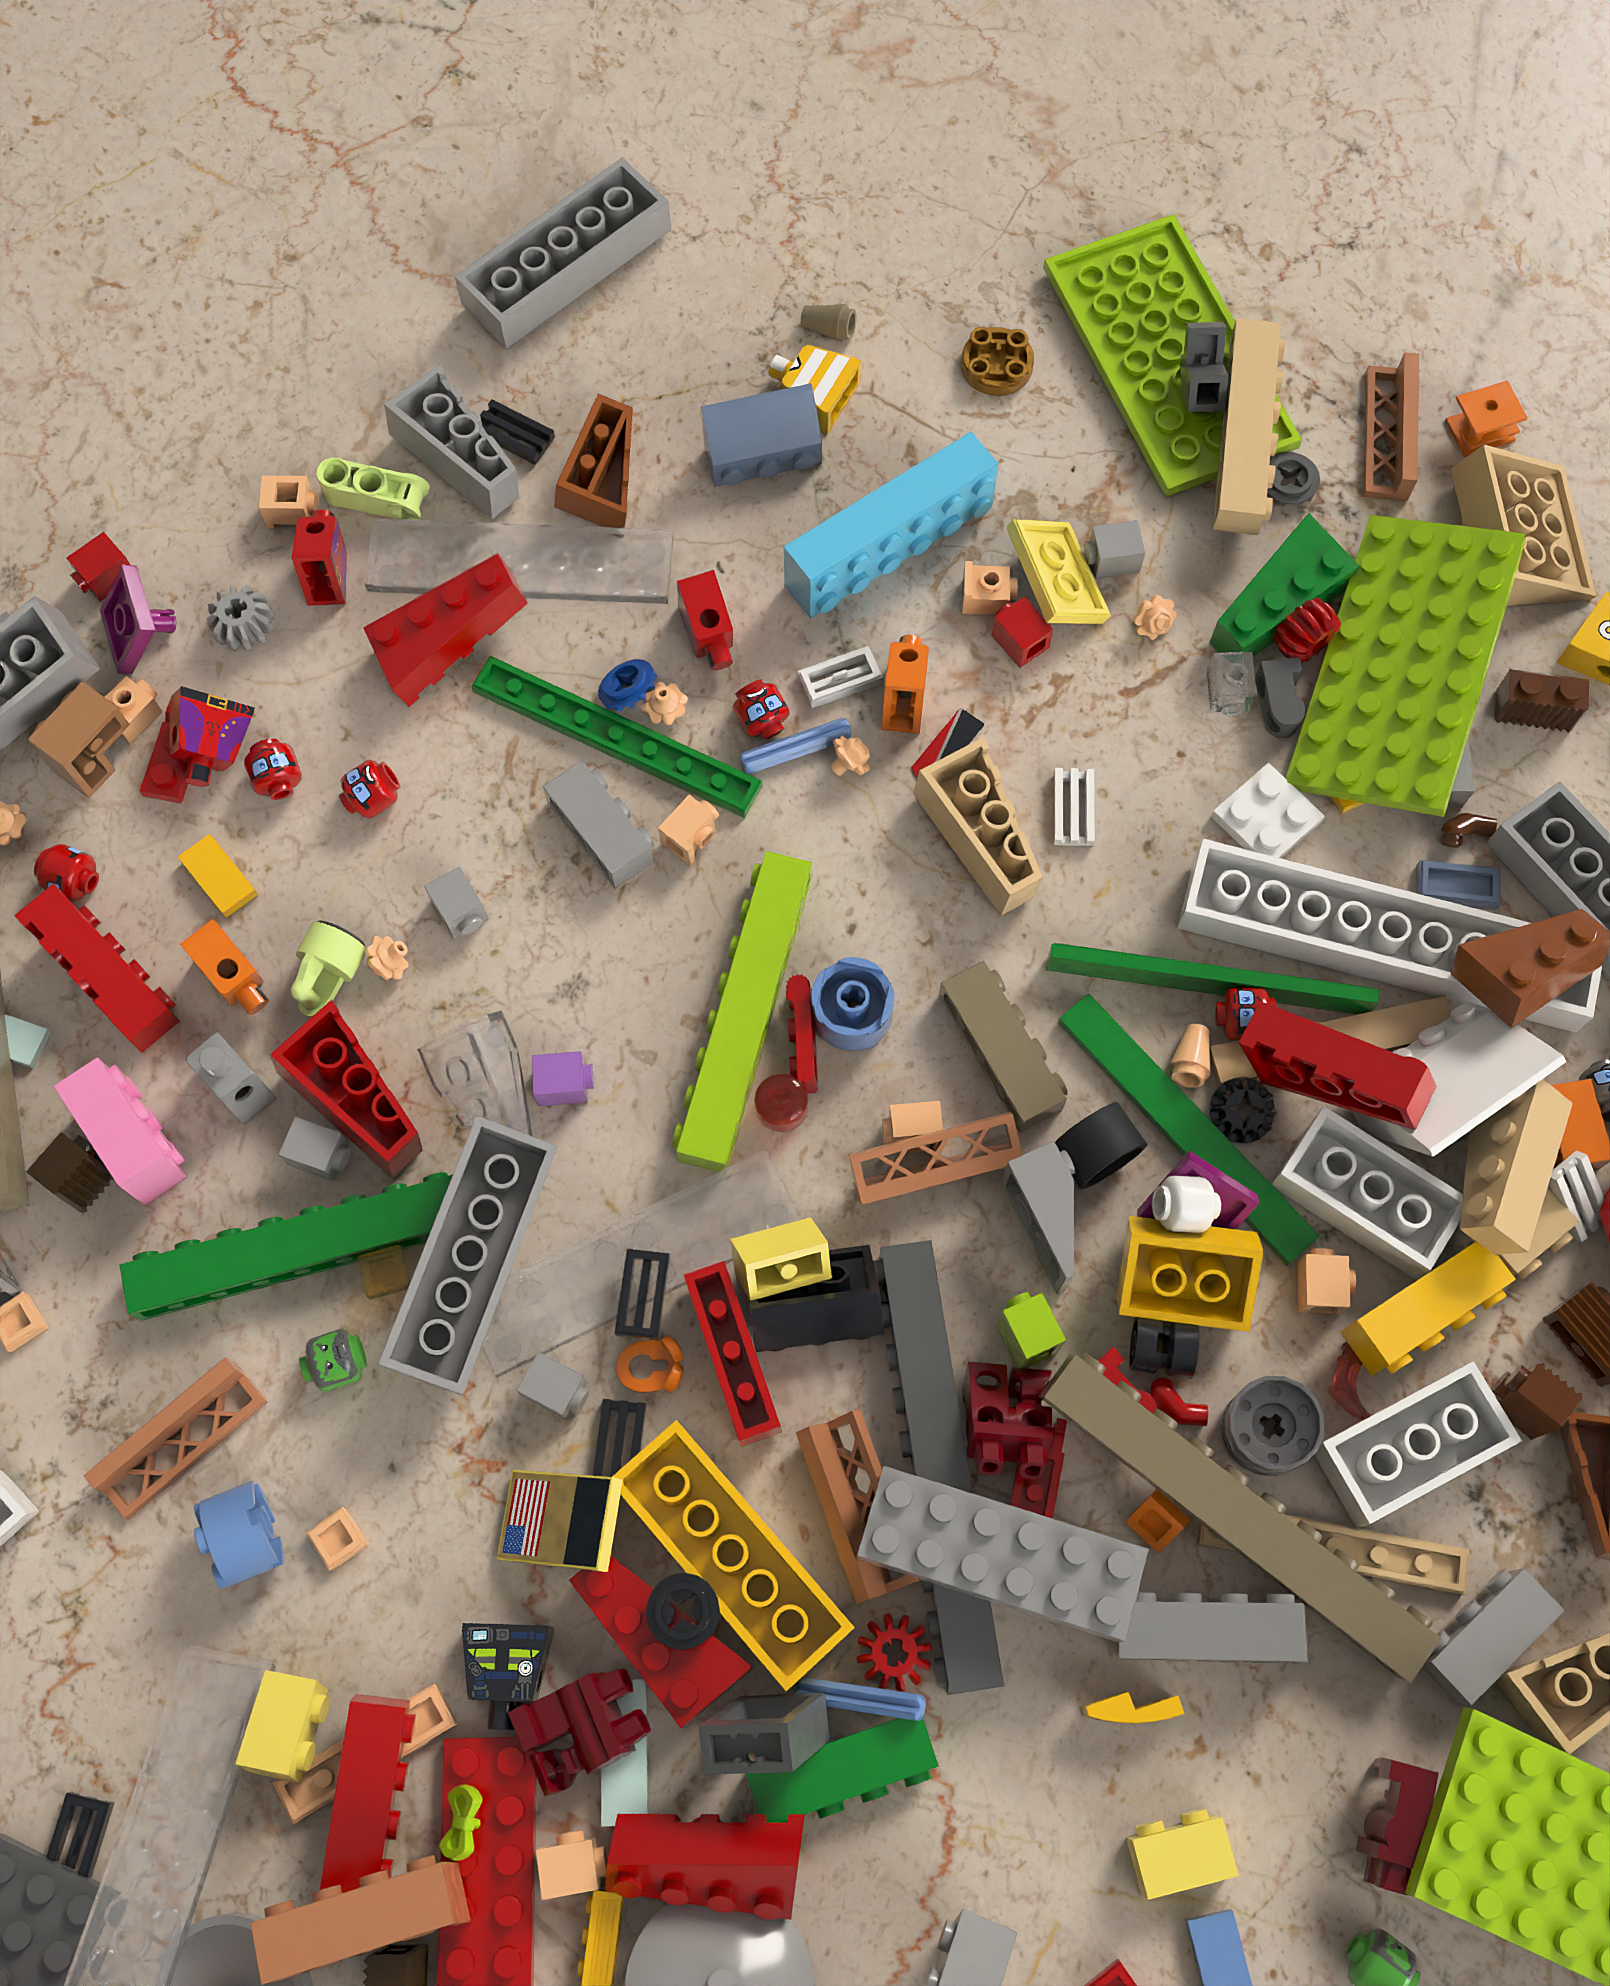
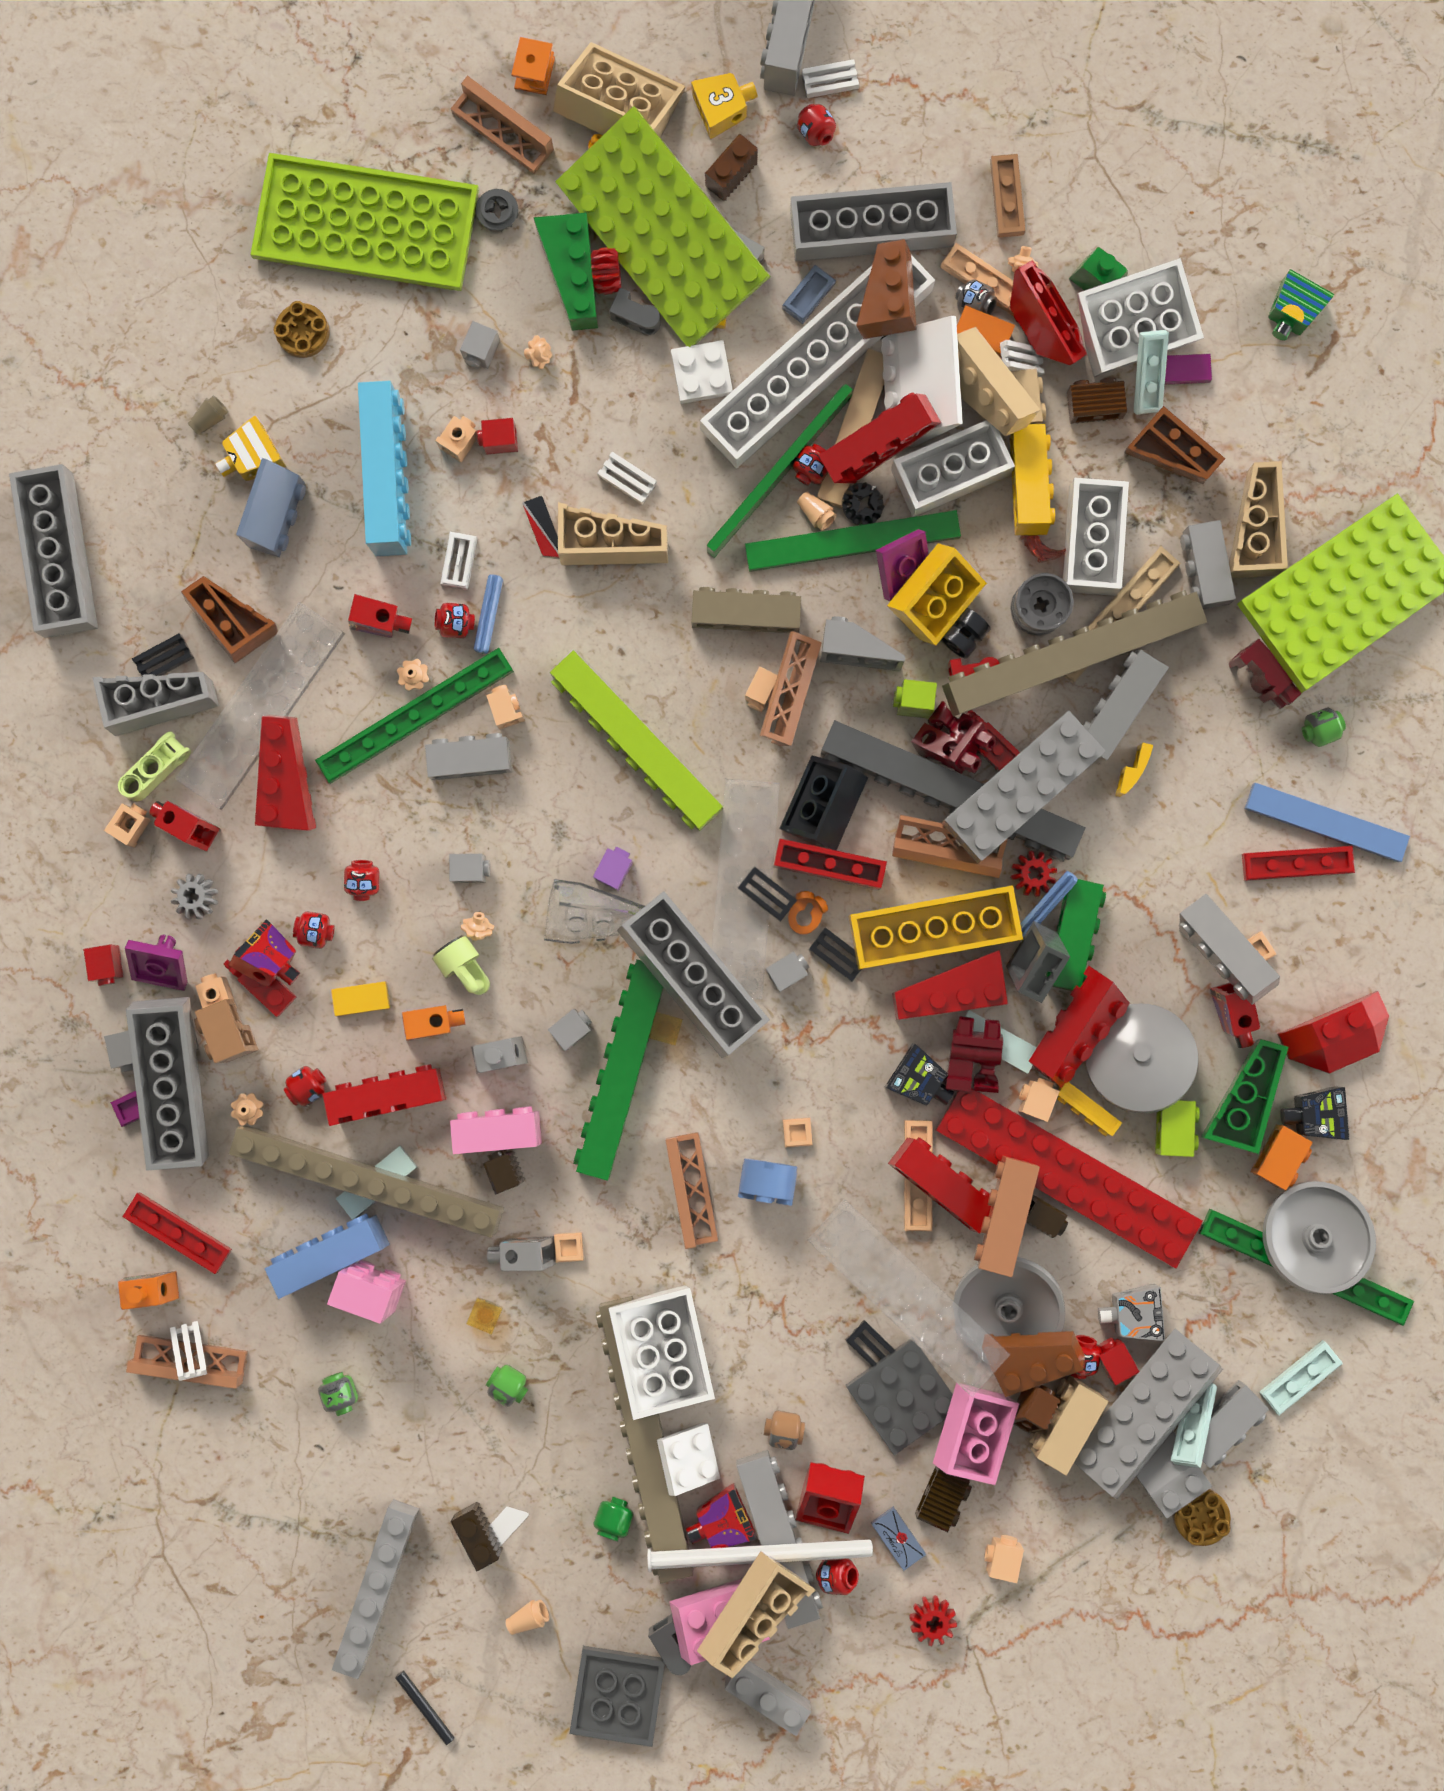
camera: 55 degrees left, 15 degrees up
(283, 1726) = (882, 1209): light yellow brick -> none
(333, 1360) = (699, 1082): head -> none
(346, 1088) = (548, 991): red wedge -> none
(458, 1841) = (993, 1148): lime piece -> none
(560, 1520) = (863, 1007): tile -> none
(637, 674) = (379, 682): blue gear -> none
(661, 1614) = (964, 974): black gear -> none
(780, 1115) = (712, 760): clear red head -> none
(781, 1258) = (795, 807): light yellow brick -> none
(803, 1032) = (668, 717): red hinge -> none
(846, 982) = (672, 664): medium blue brick -> none
(851, 756) = (516, 586): light nougat plant -> none
(905, 673) = (492, 525): orange torso -> none
(1058, 572) = (474, 389): light yellow tile -> none
(1101, 1144) = (838, 594): black piece -> none
(1157, 1520) = (1050, 695): orange plate -> none
(1172, 1404) = (997, 649): red arm -> none
(1181, 1854) = (1215, 790): light yellow brick -> none
(1186, 1204) = (903, 571): white head -> none
(1202, 367) = (398, 215): dark grey brick -> none
(1231, 682) = (609, 336): clear brick -> none
(1248, 426) = (451, 212): tan brick -> none
(1324, 1282) = (983, 524): light nougat brick -> none
(1466, 824) = (776, 265): reddish brown arm -> none
(1535, 1400) = (1112, 459): reddish brown brick -> none

